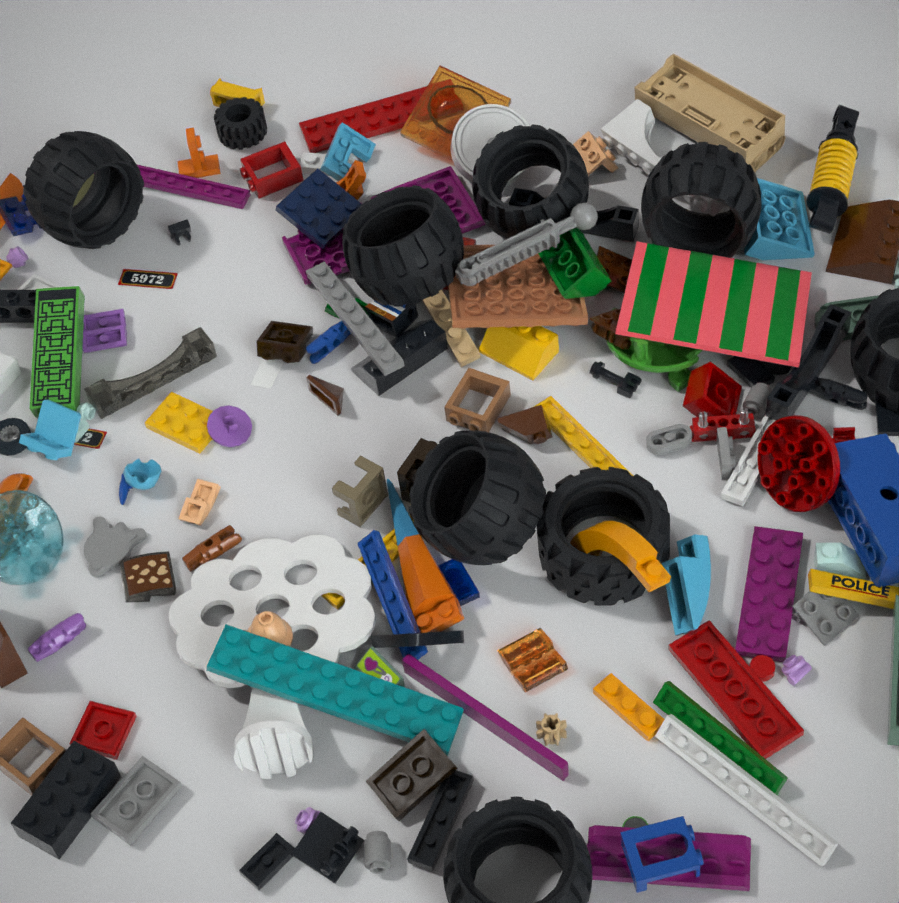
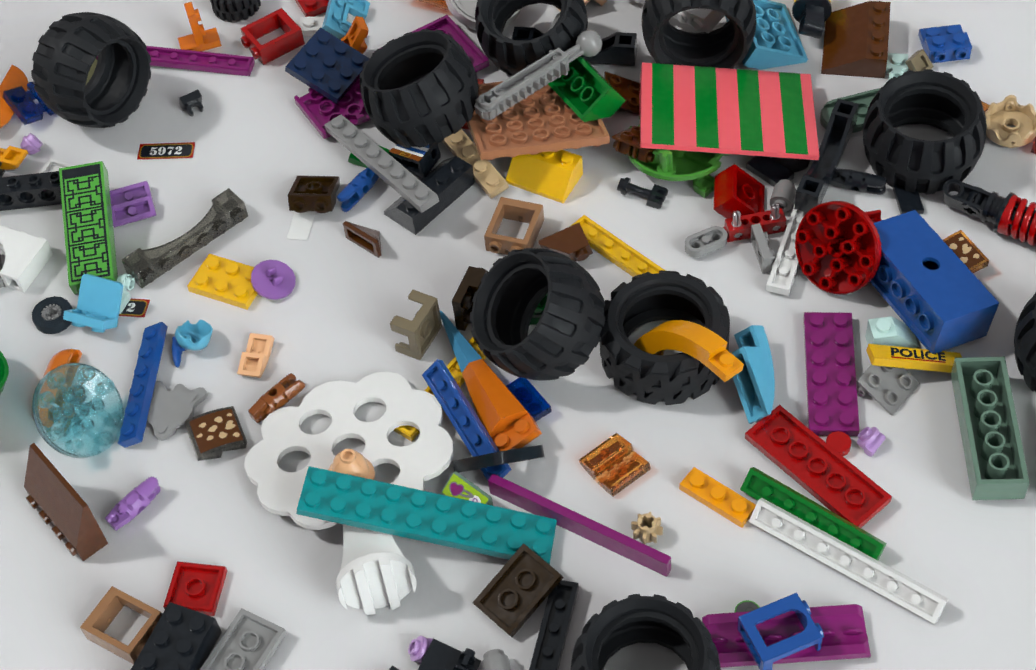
camera: 10 degrees left, 0 degrees up
(85, 518) = (143, 385): none -> blue plate

